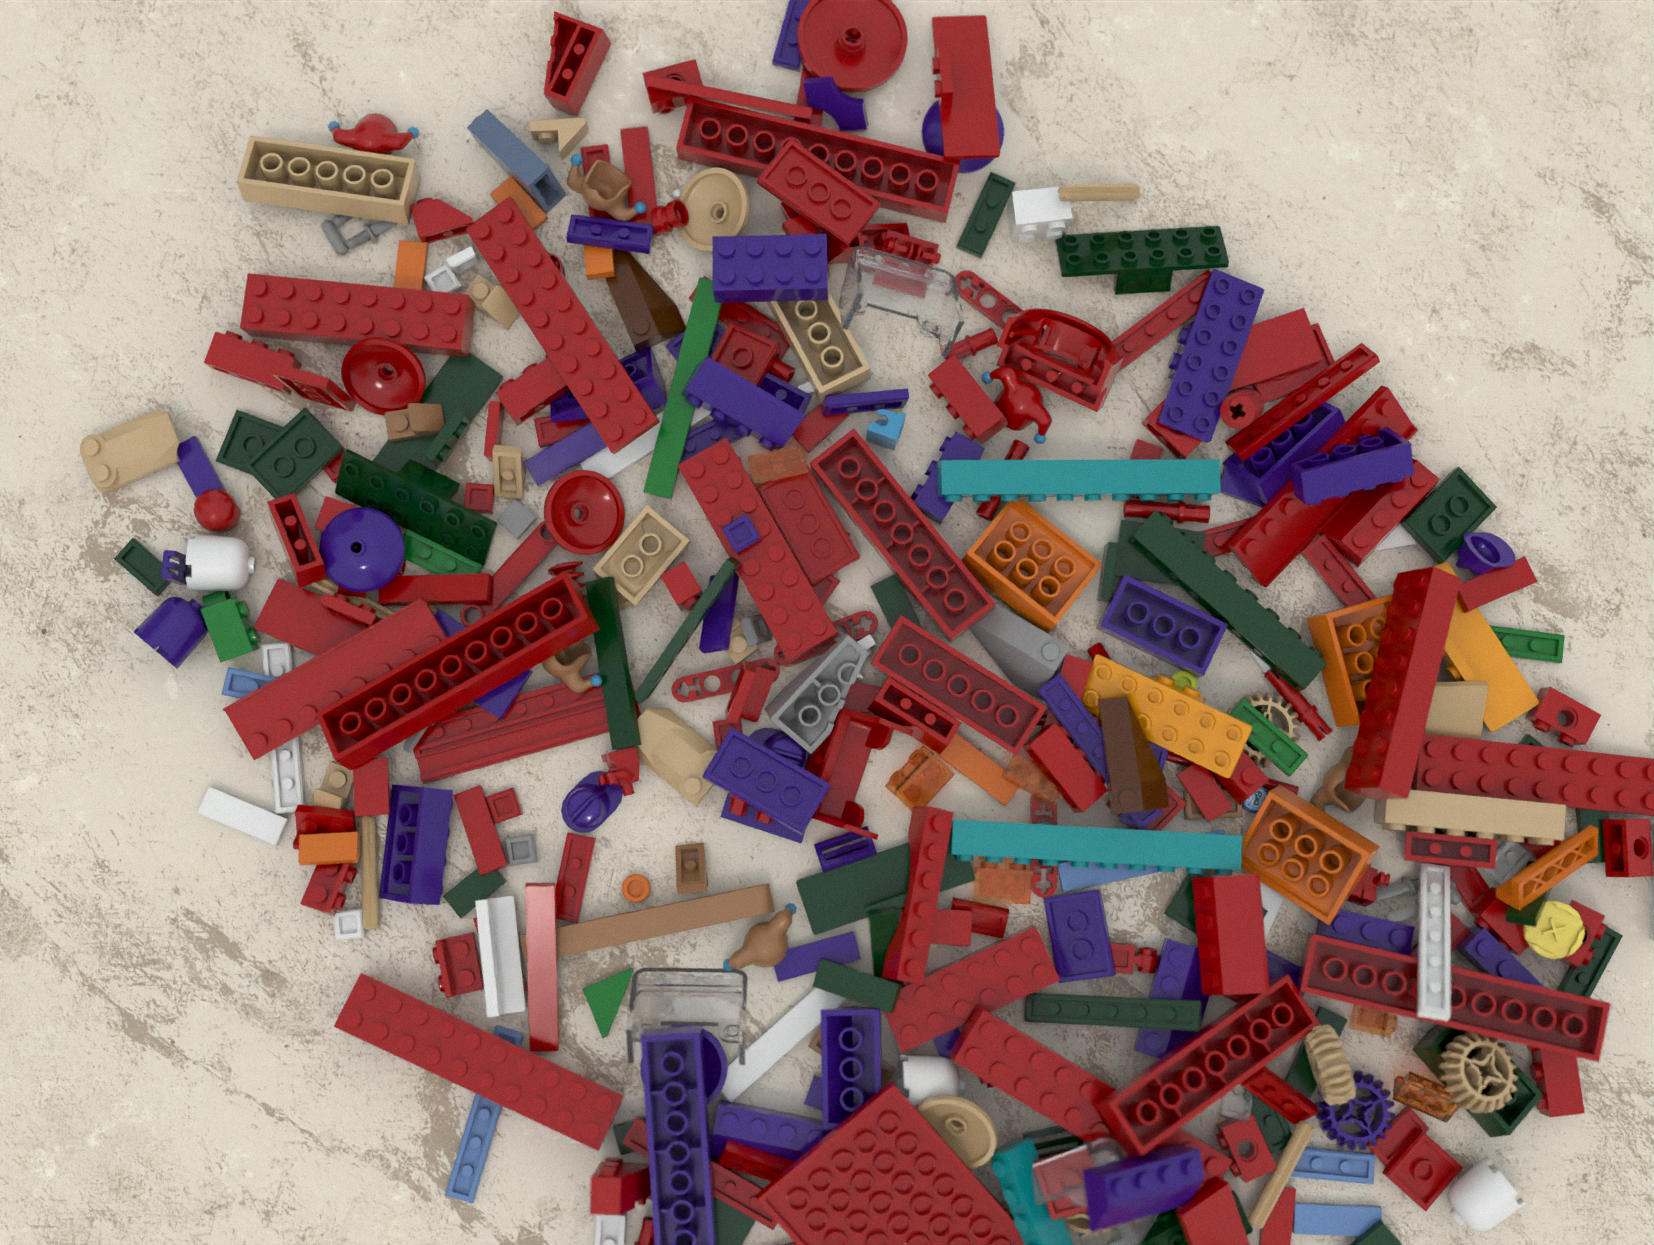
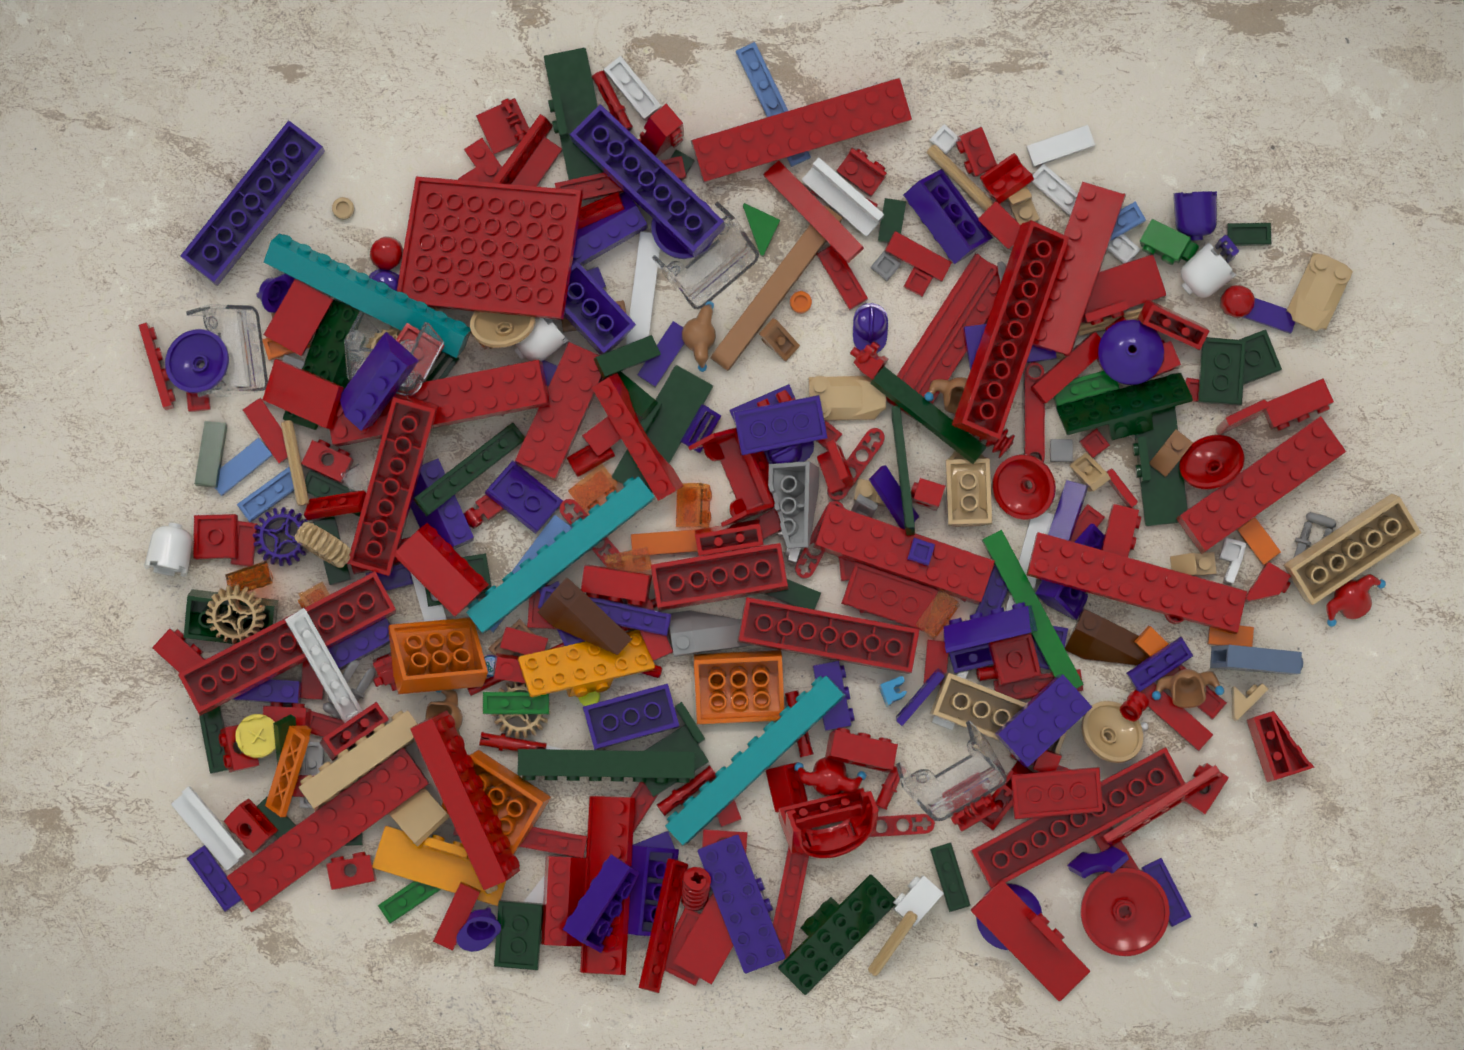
camera: 140 degrees right, 0 degrees up
(328, 848) = (993, 170): orange tile -> none
(1068, 429) = (785, 786): none -> red panel

